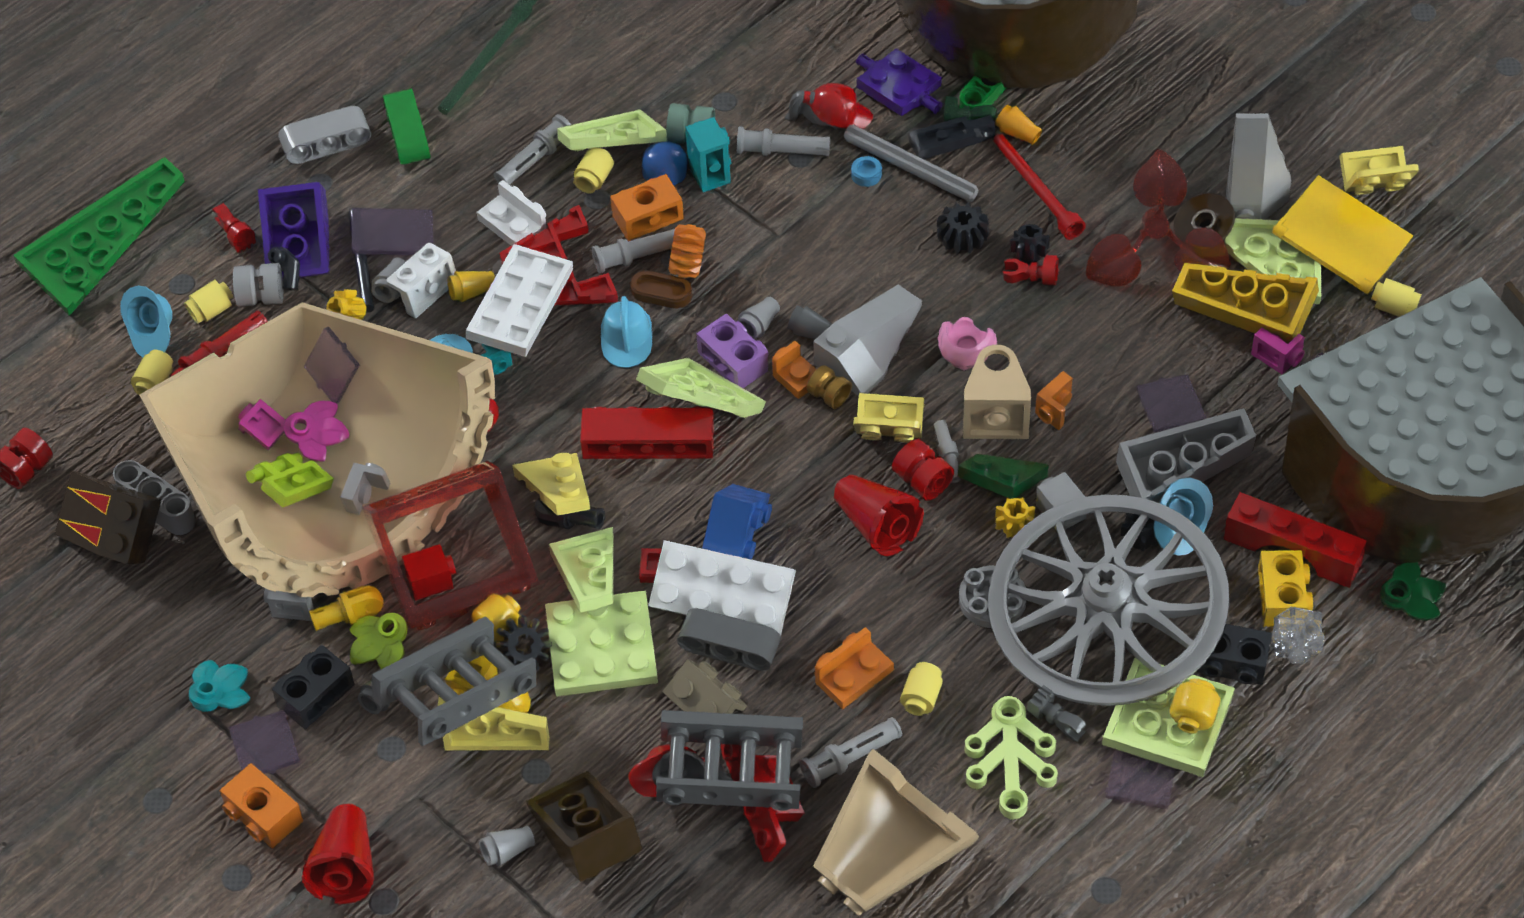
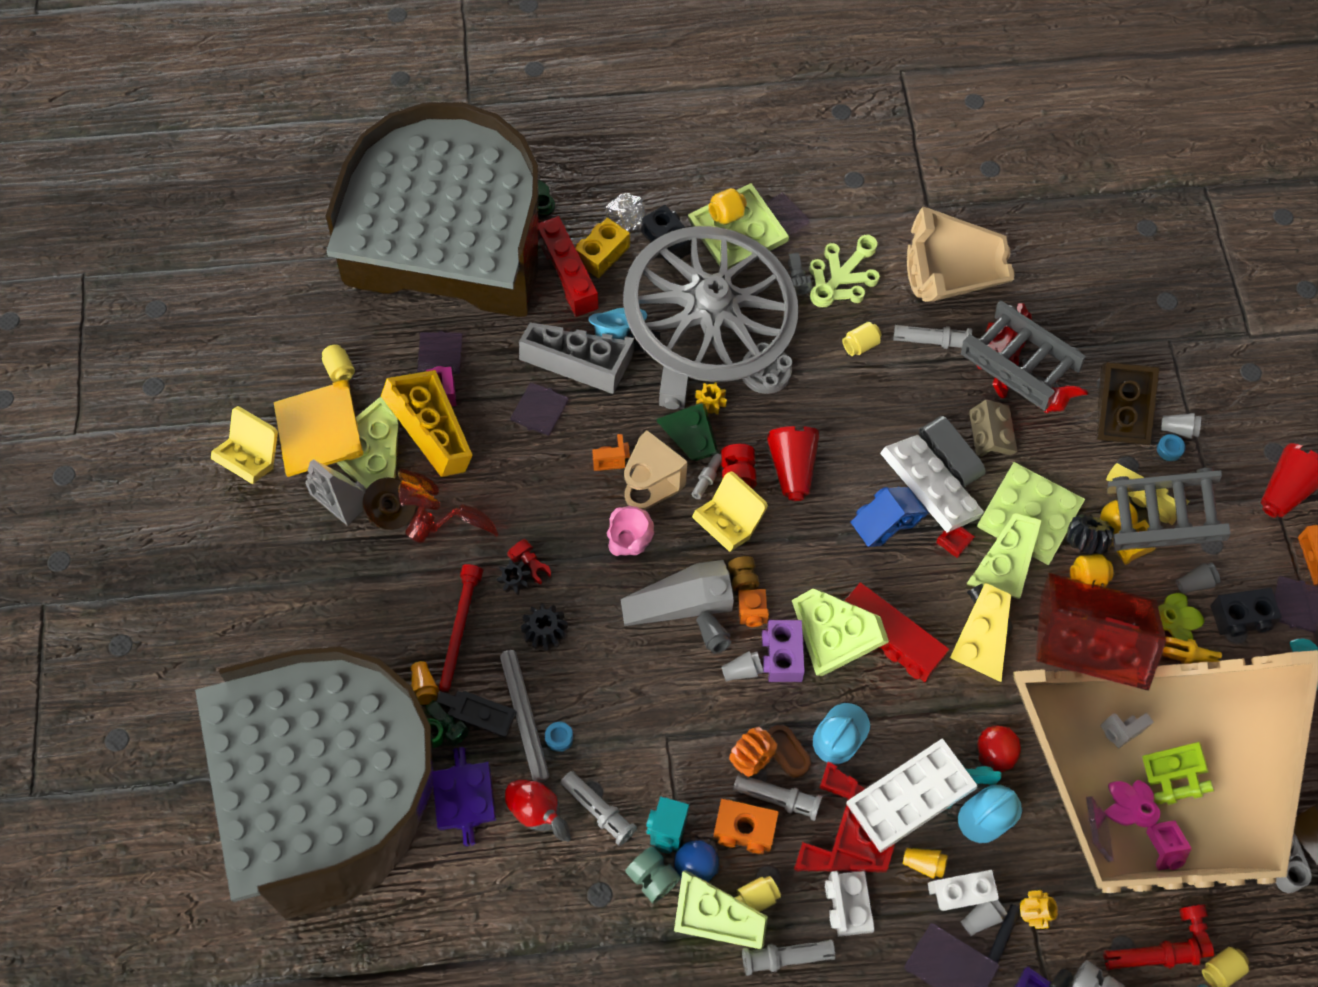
camera: 145 degrees left, 10 degrees up
(501, 816) = (1171, 447): none -> dark azure tile
(852, 668) = (890, 383): orange bracket -> none

